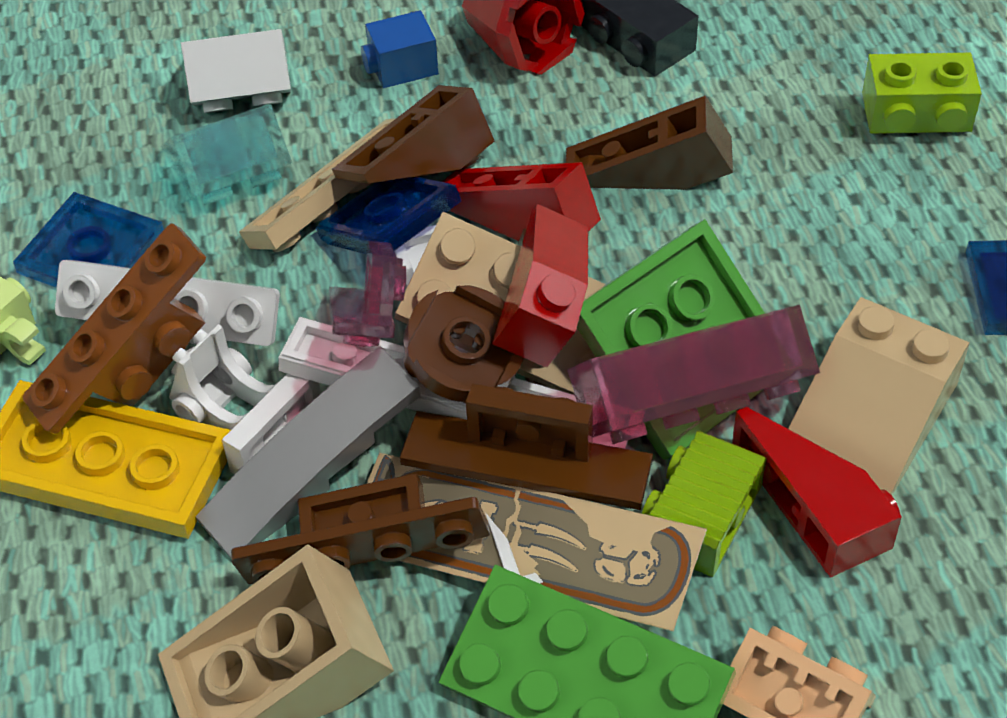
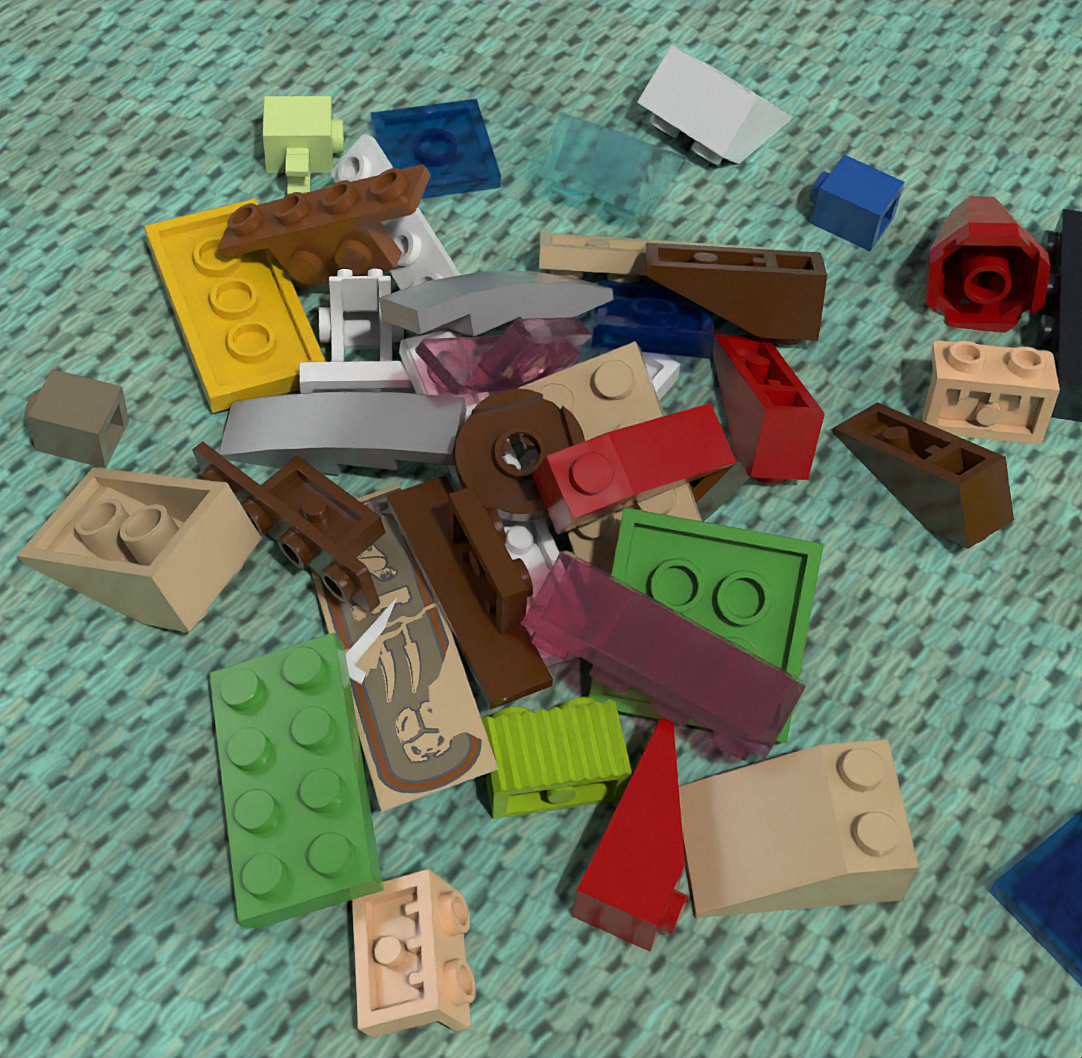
camera: 45 degrees right, 5 degrees up
(107, 631) = (77, 418): none -> dark tan brick
(303, 283) = (490, 301): none -> light grey slope
(626, 80) = (991, 391): none -> light nougat bracket

